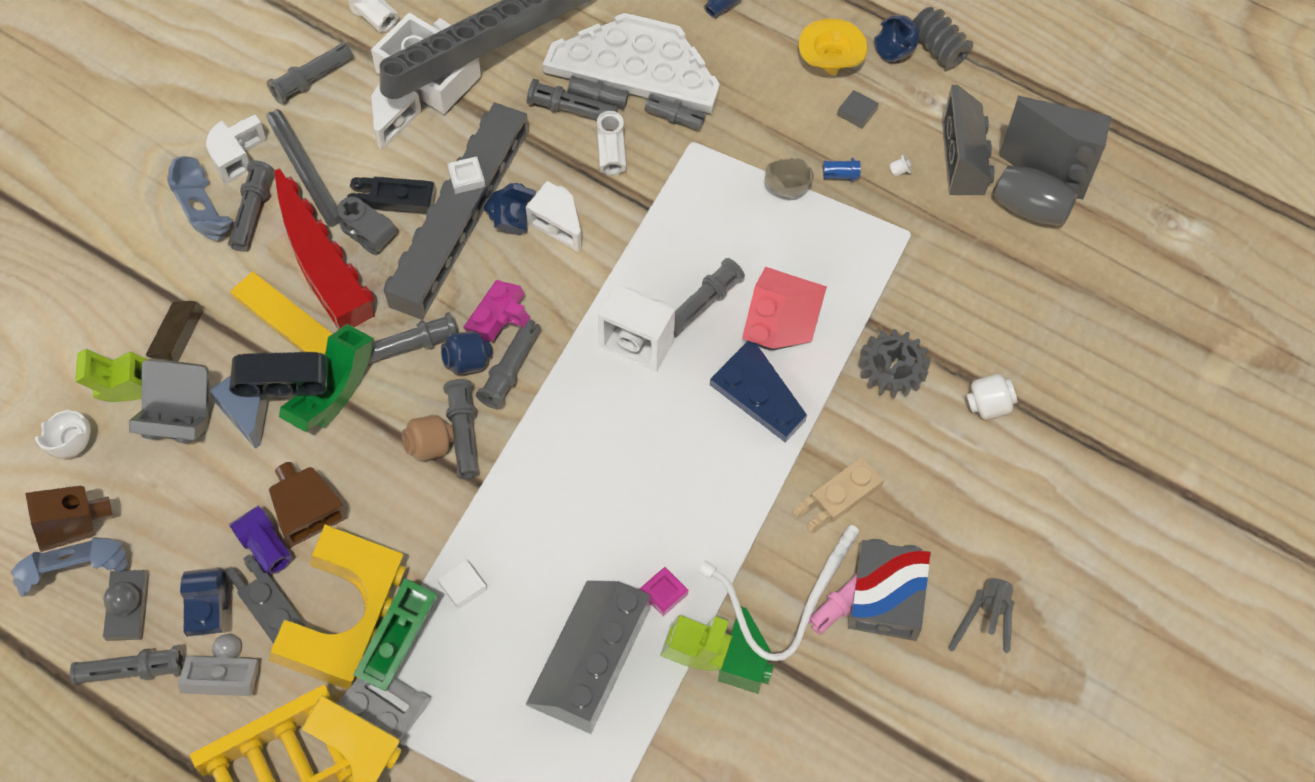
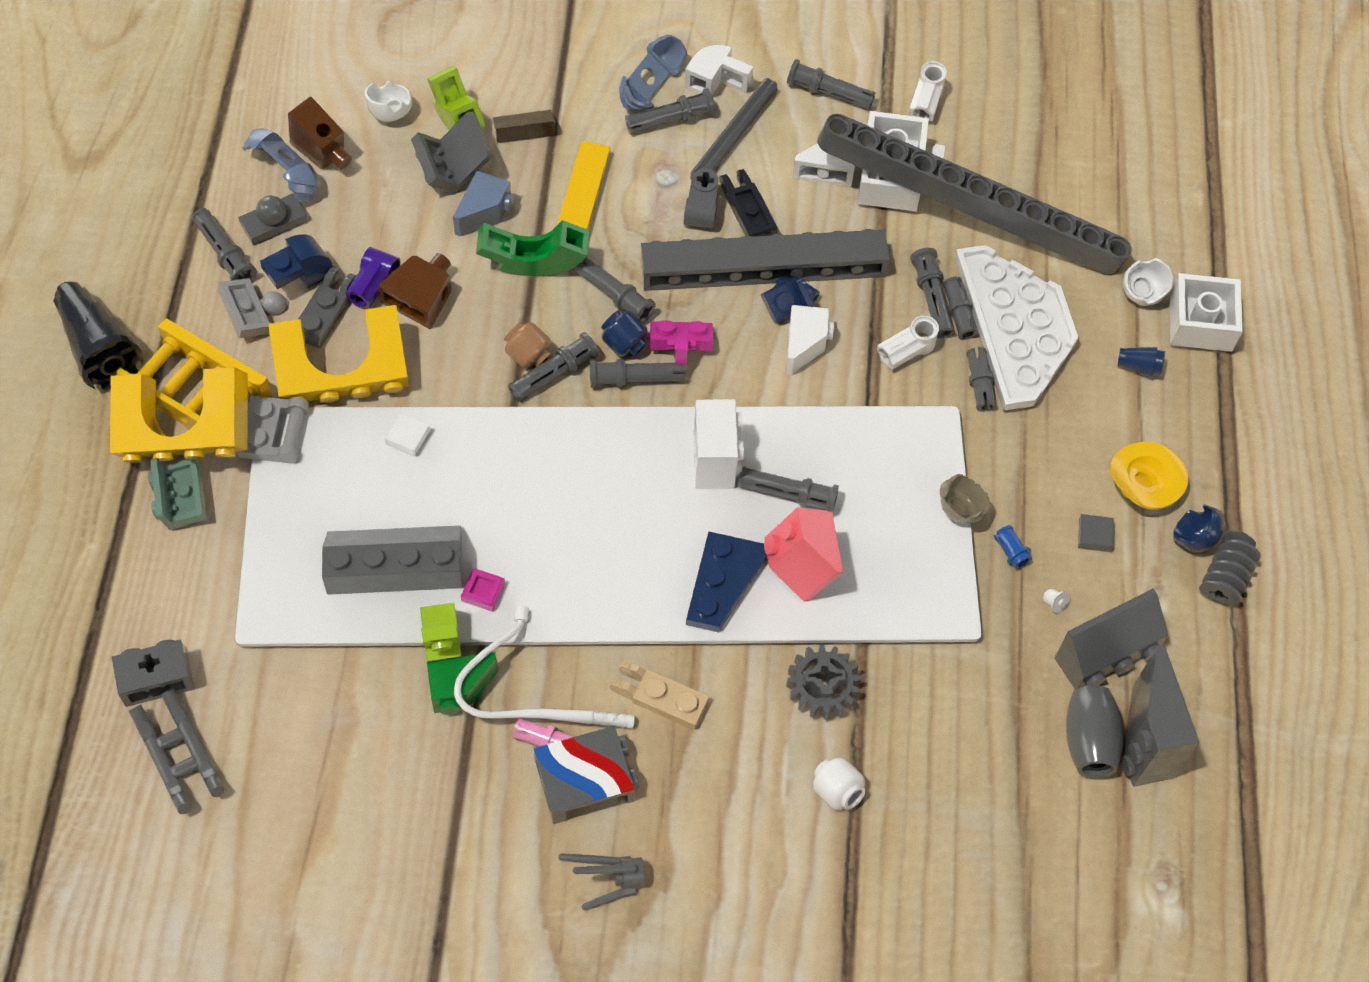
camera: 60 degrees right, 0 degrees up
(279, 374) = (512, 206): black beam -> none
(321, 260) = (649, 184): red slope -> none
(395, 634) = (334, 404): green slope -> none
(466, 175) = (791, 244): white tile -> none

